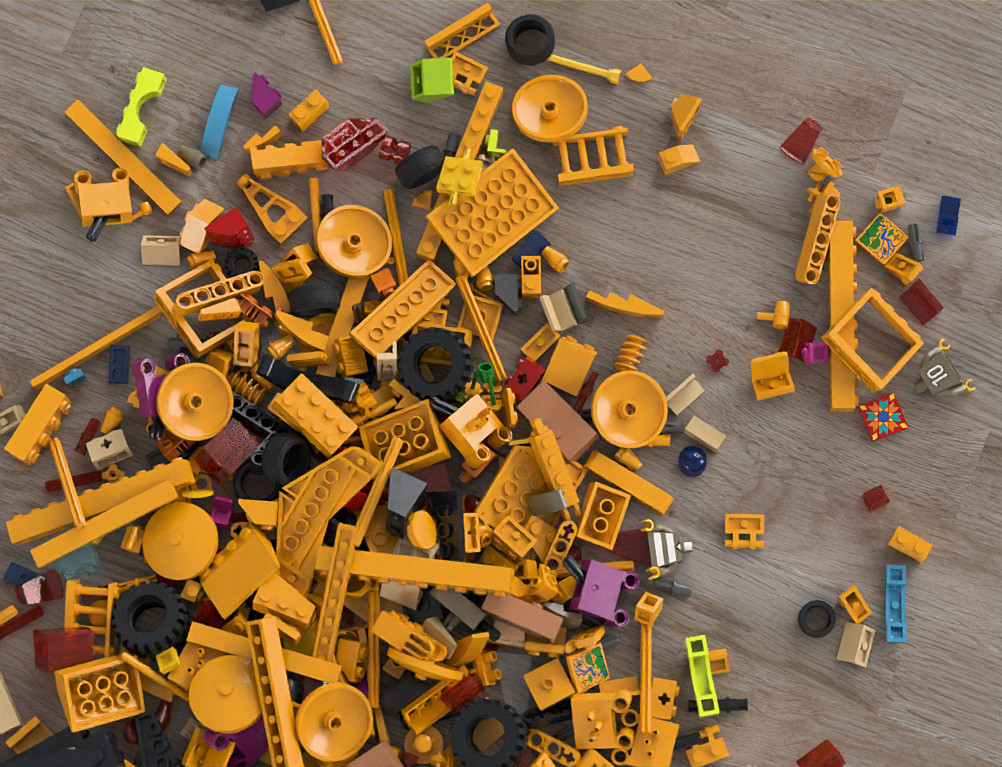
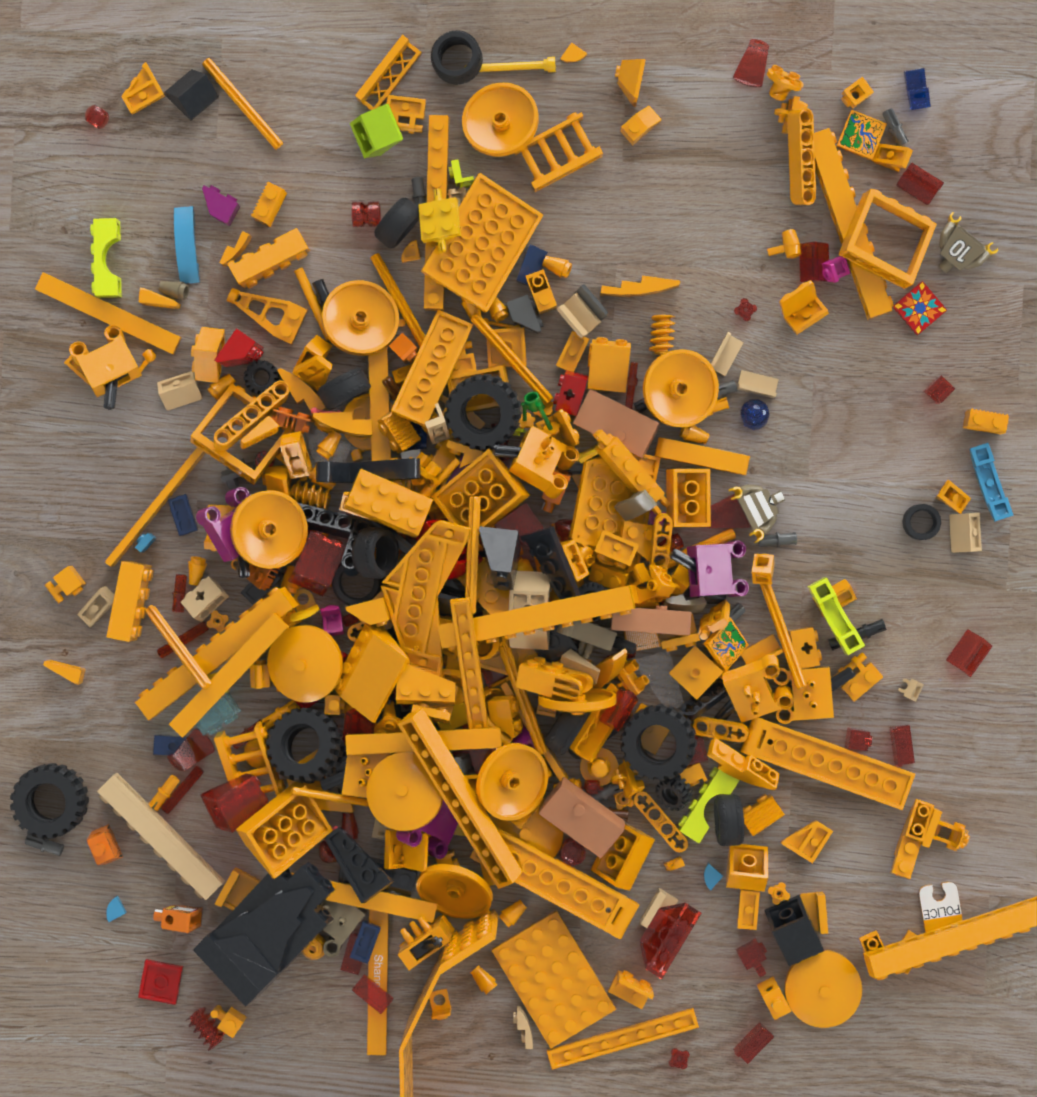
camera: 25 degrees left, 10 degrees up
(168, 660) = (336, 779): yellow plate -> none
(308, 359) = (360, 447): light orange tile -> none
(351, 142) = (321, 221): clear red wedge -> none
(422, 530) = (529, 576): light orange tile -> none
(744, 524) = (825, 457): light orange plate -> none

